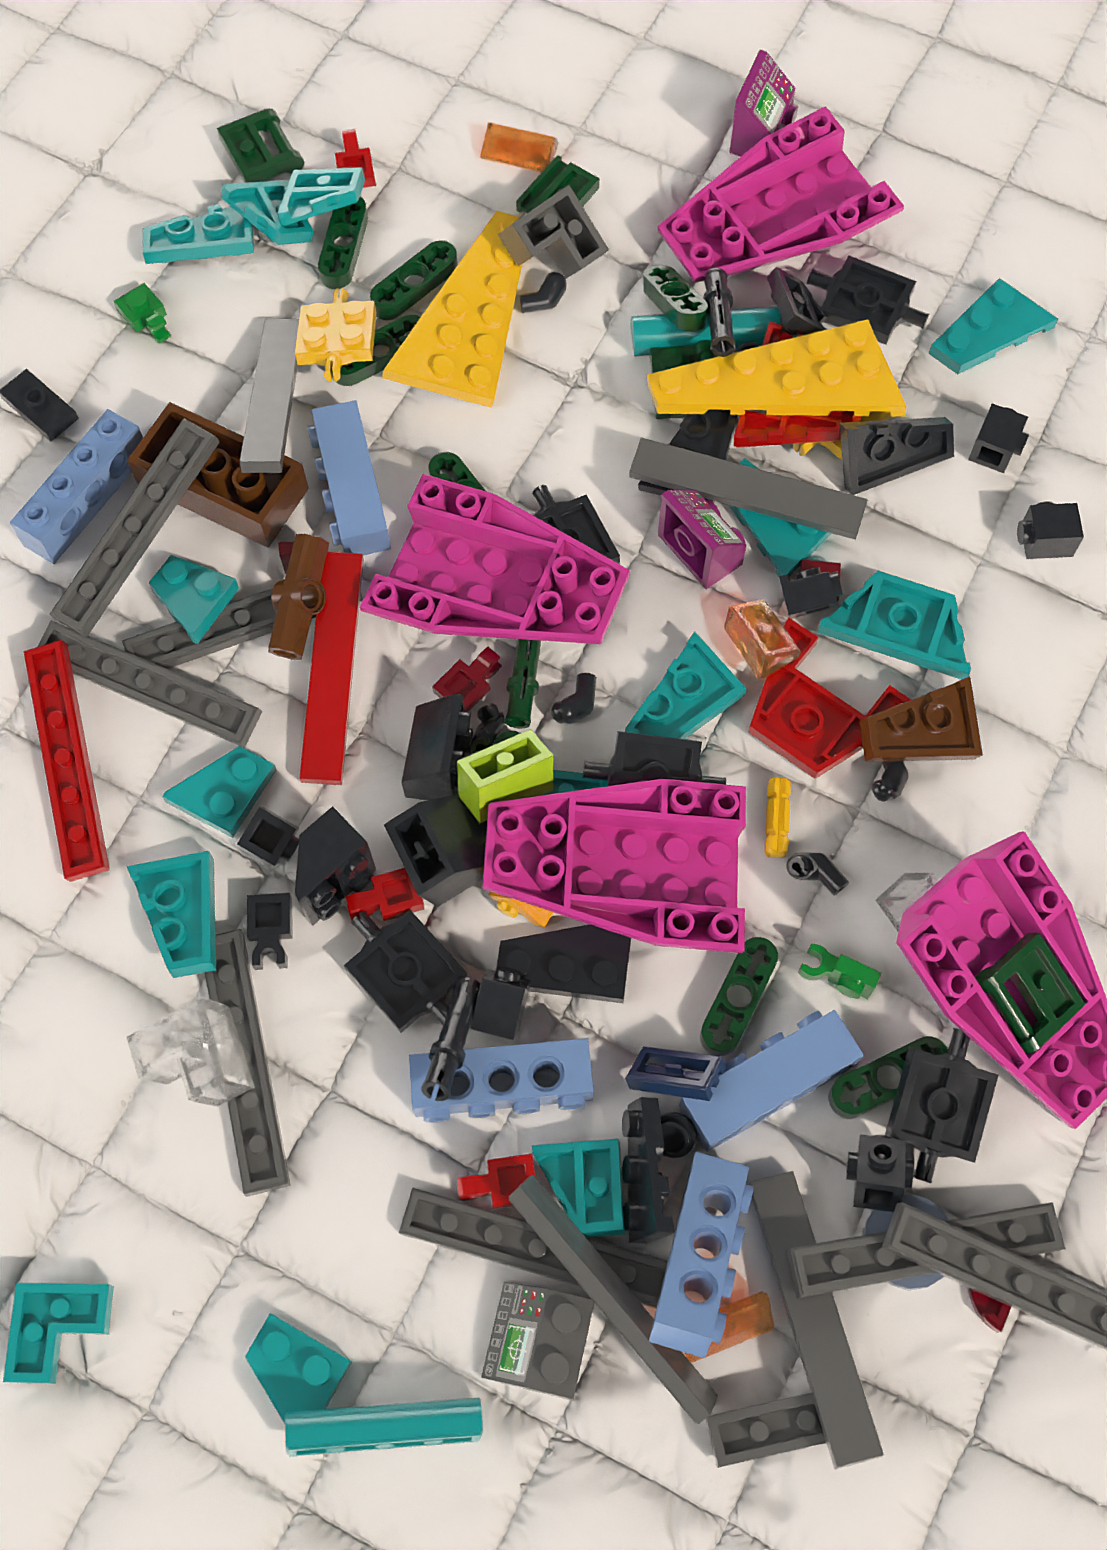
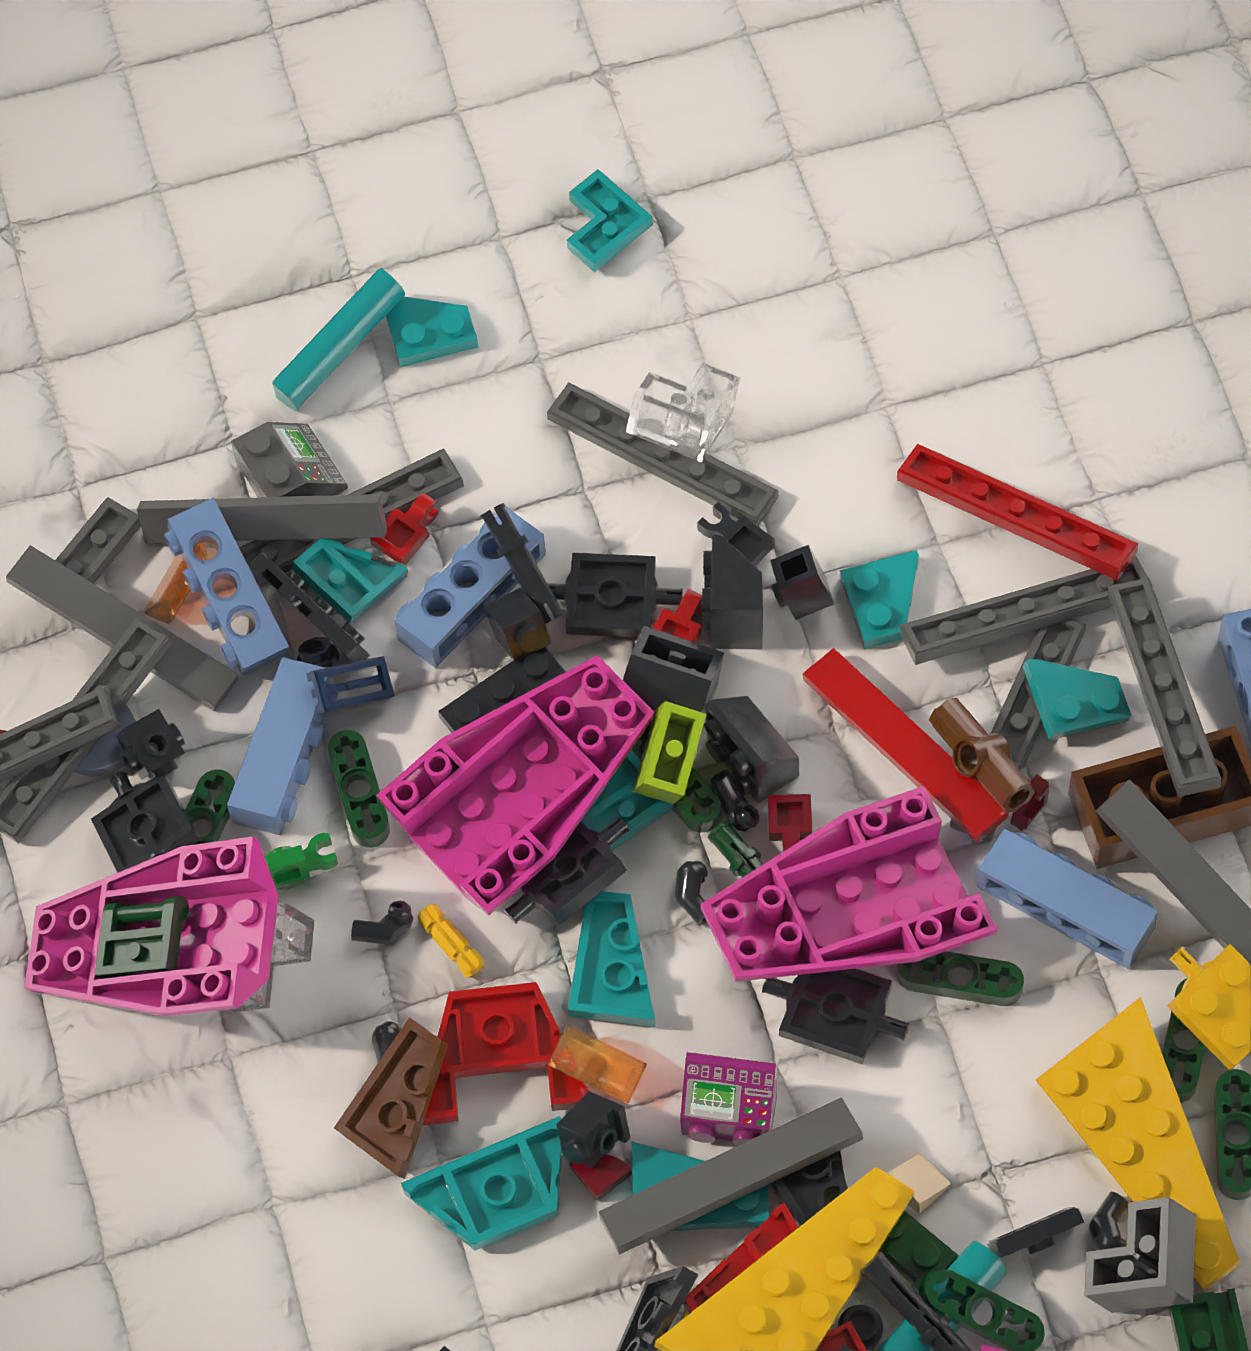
camera: 140 degrees right, 5 degrees down
(181, 910) = (813, 495): teal wing -> none
(593, 317) = (1036, 1235): none -> black plate
(628, 407) = (924, 1179): none -> tan slope

